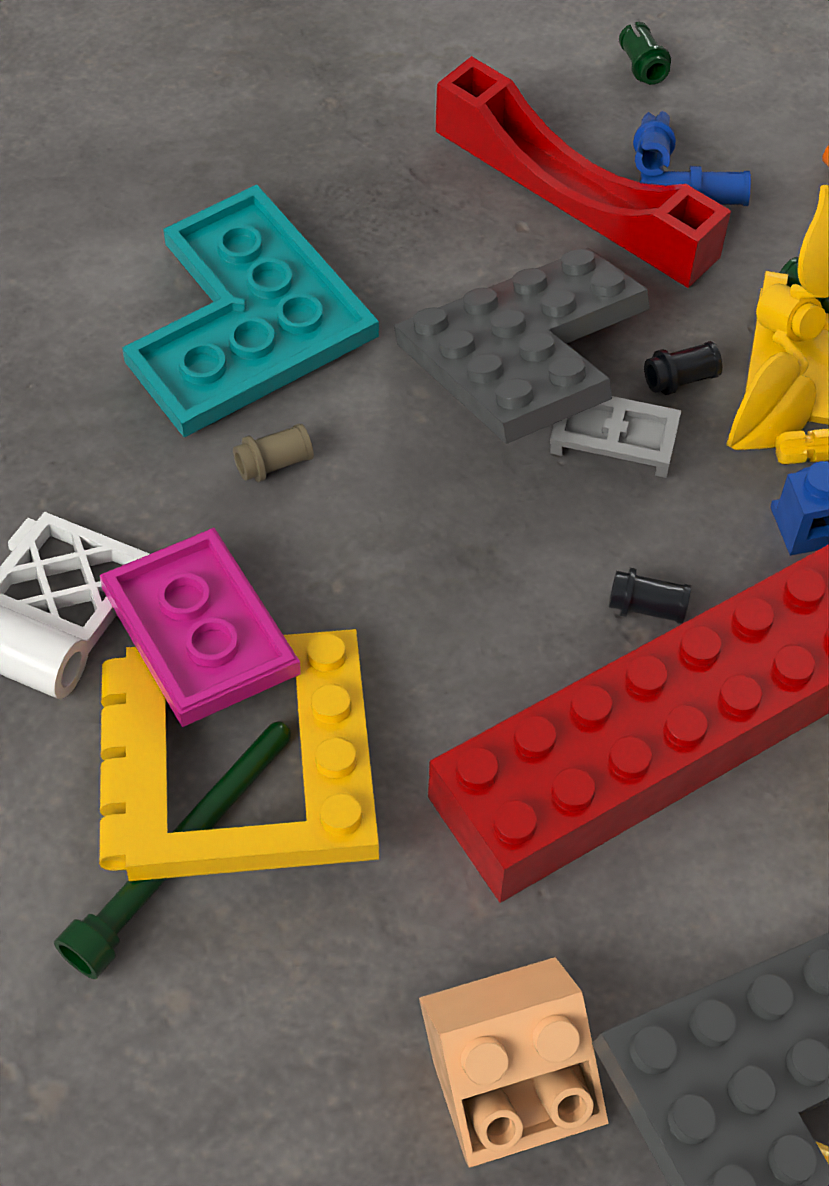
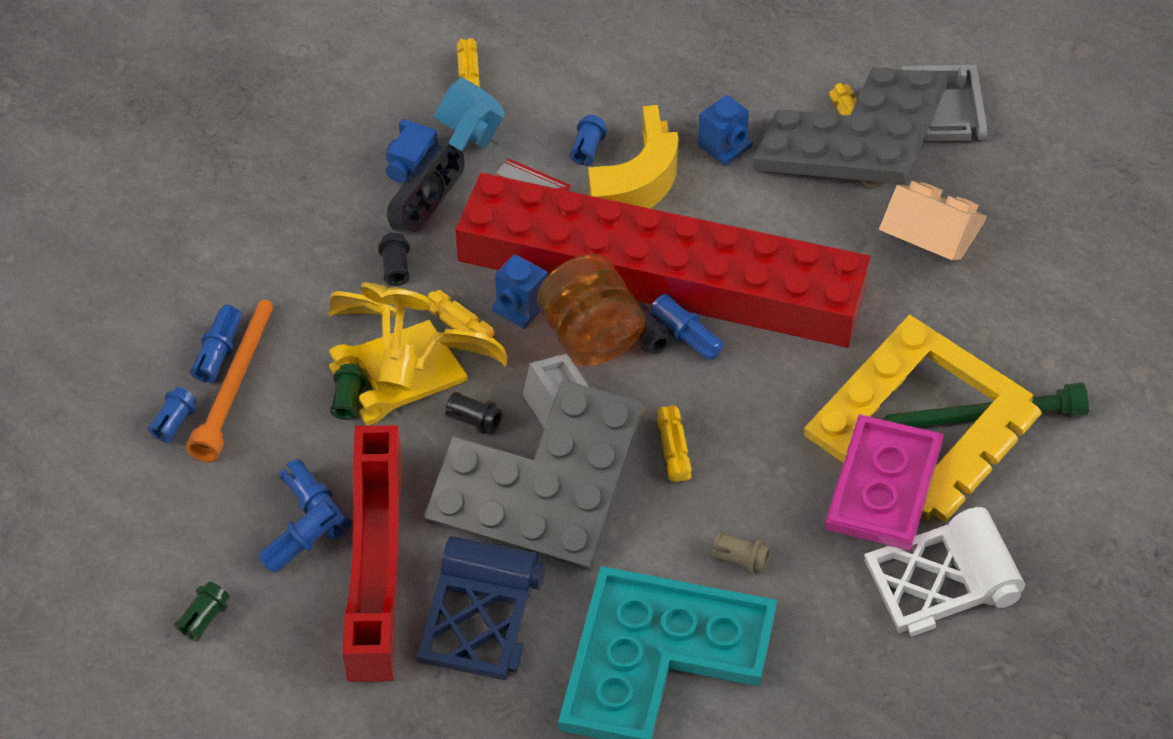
camera: 130 degrees left, 5 degrees down
(462, 245) = (489, 573): none -> dark blue piece
(467, 505) = (674, 444): none -> yellow axle
(606, 635) = (686, 327): none -> blue axle
(708, 522) = (590, 310): none -> clear orange wheel

